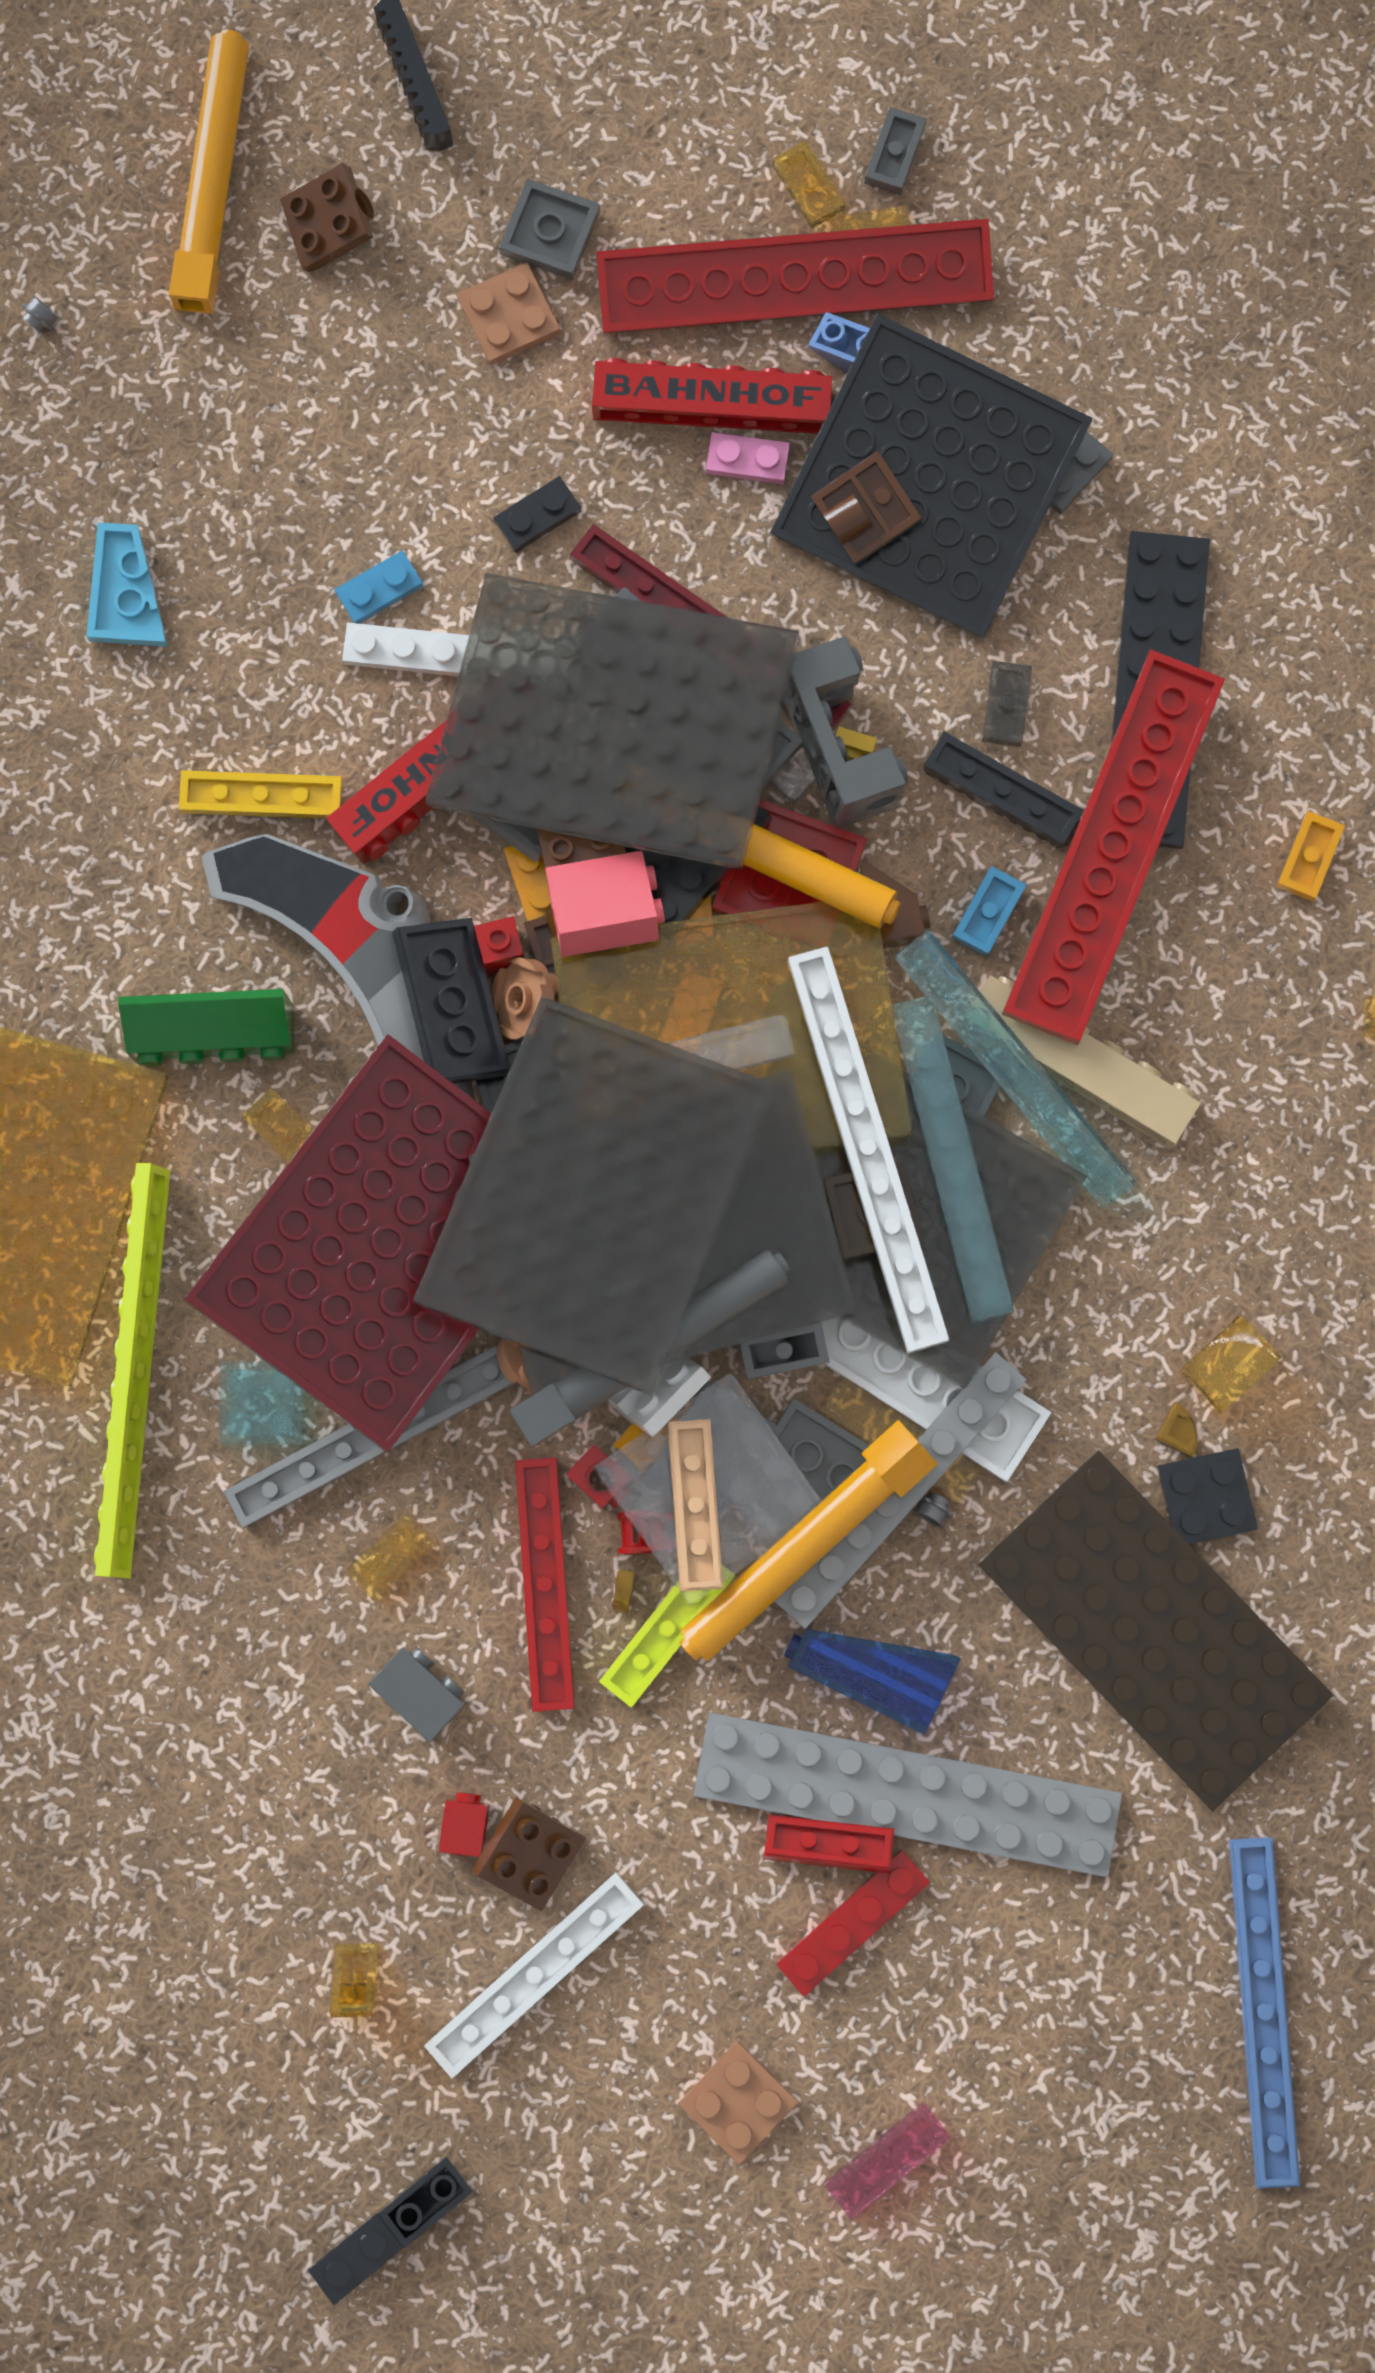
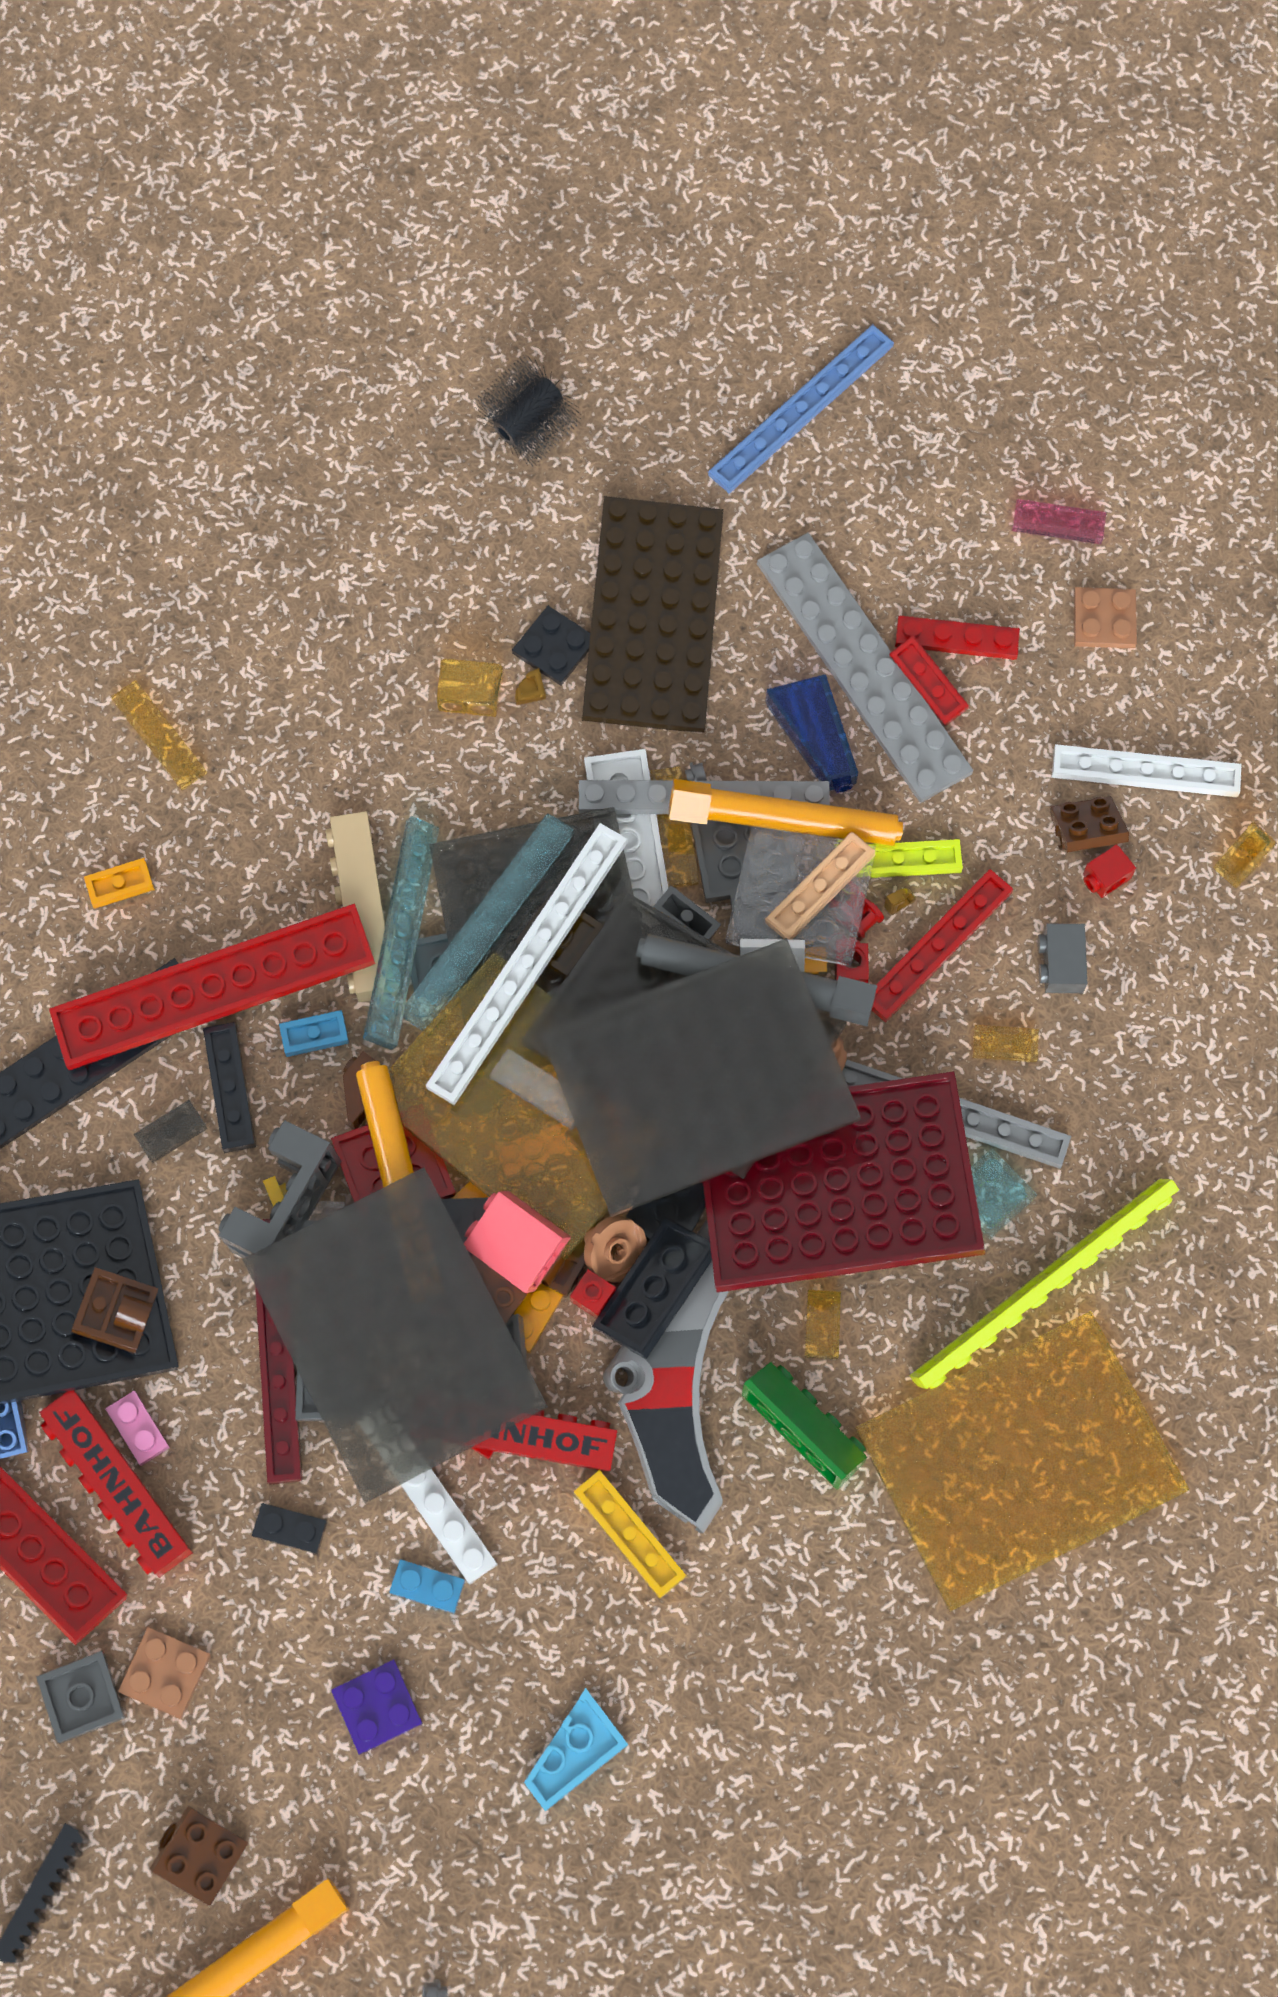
camera: 135 degrees left, 10 degrees down
(316, 462) = (376, 1707): none -> dark purple plate

